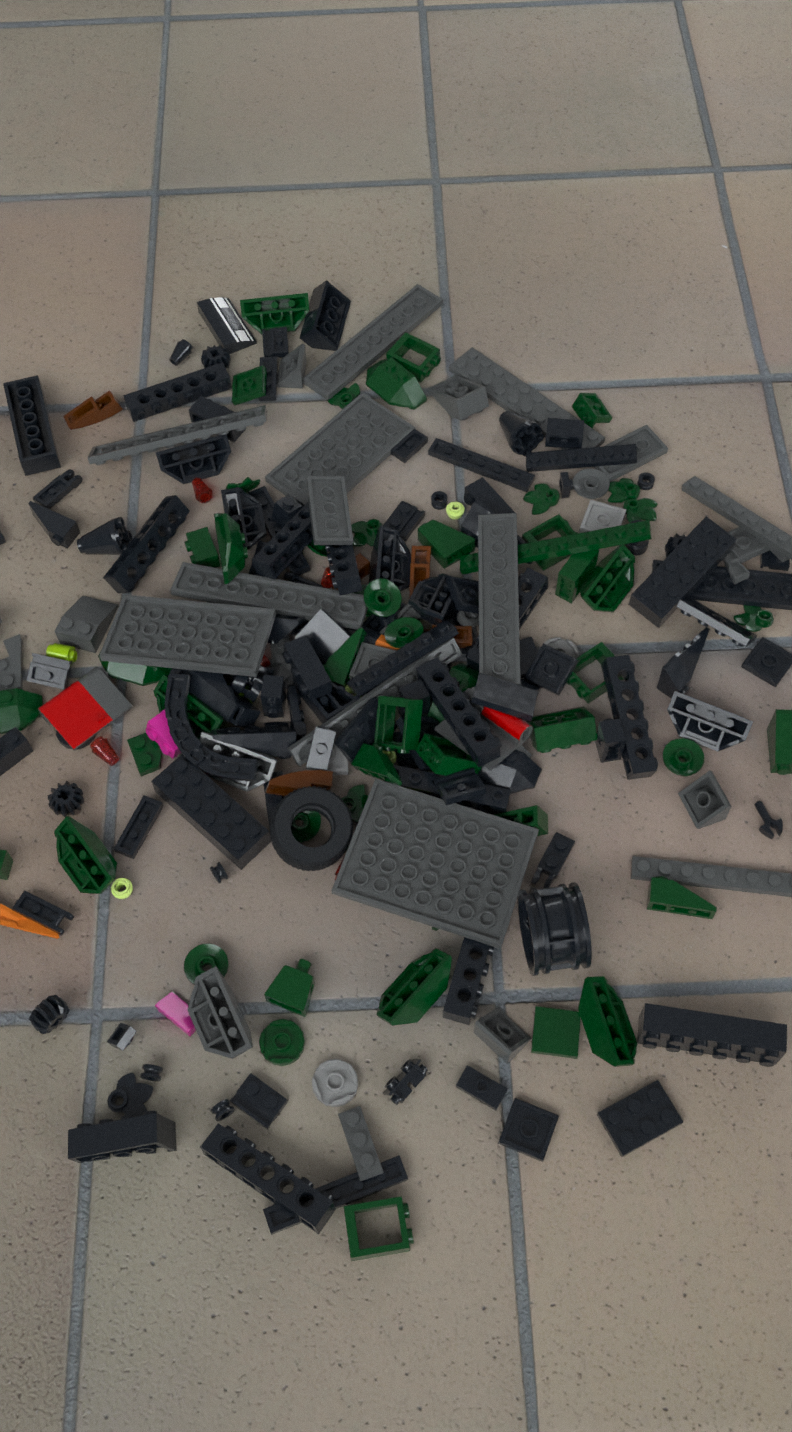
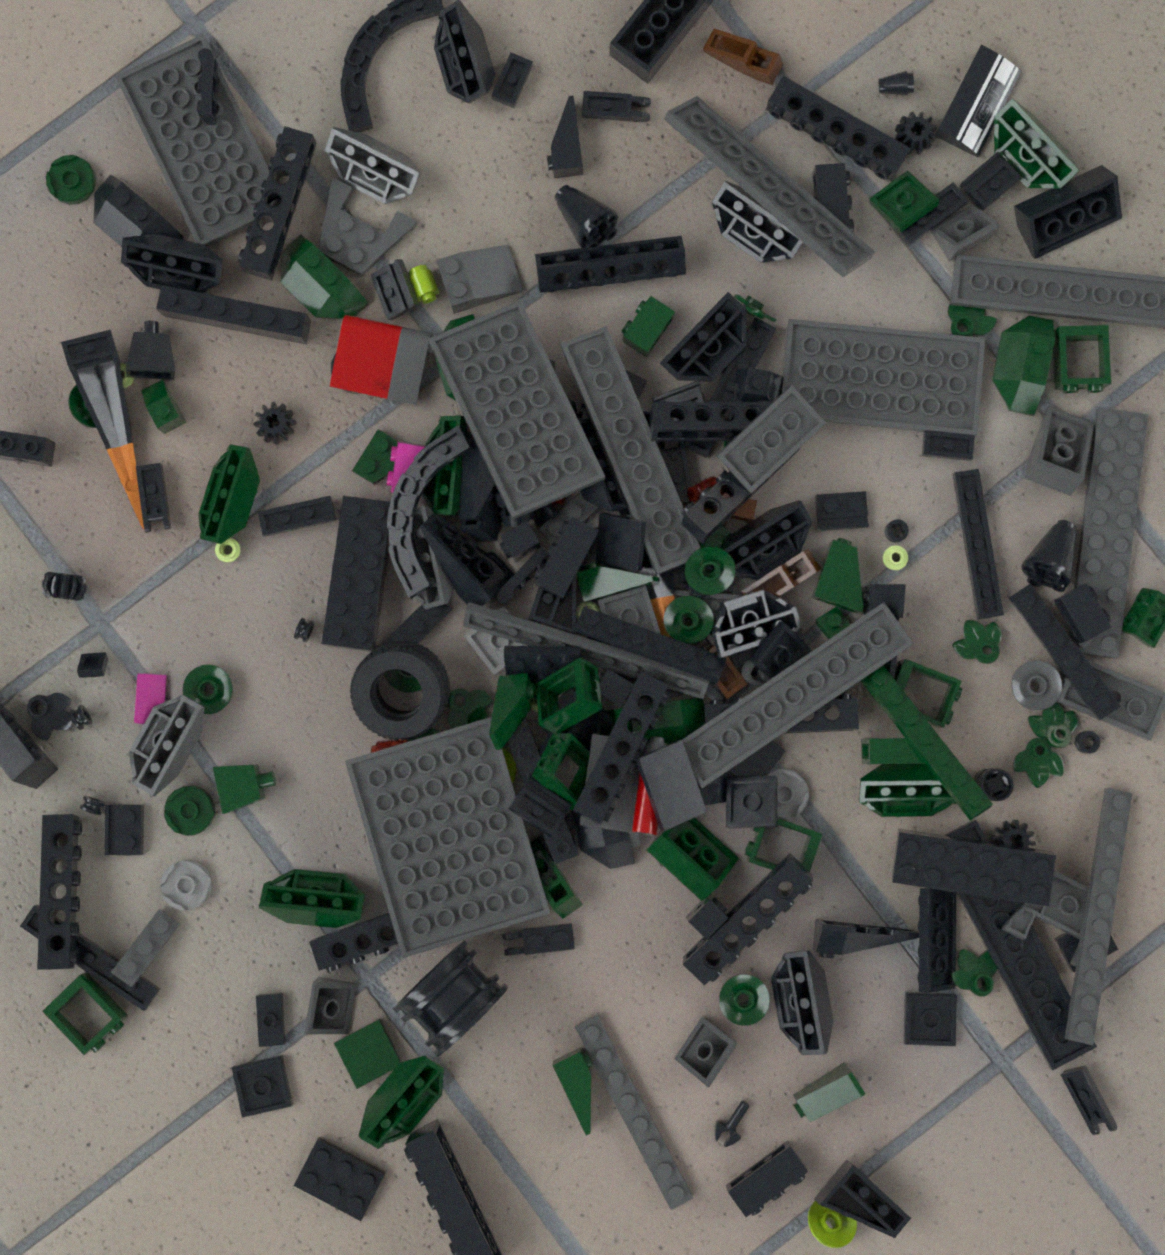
camera: 55 degrees right, 25 degrees up
(104, 750) = (350, 417): clear red cone -> none
(201, 490) = (723, 263): clear red cone -> none
(230, 546) = (654, 365): dark green wedge -> none
(287, 783) = (446, 642): reddish brown slope -> none
(321, 748) = (491, 636): plate -> none
(365, 532) = (792, 482): dark green plate -> none
(398, 1085) = (217, 945): black hinge -> none
(484, 493) = (925, 592): black brick -> none
(565, 484) = (1014, 658): black plate -> none
(601, 516) = (994, 730): light grey plate -> none

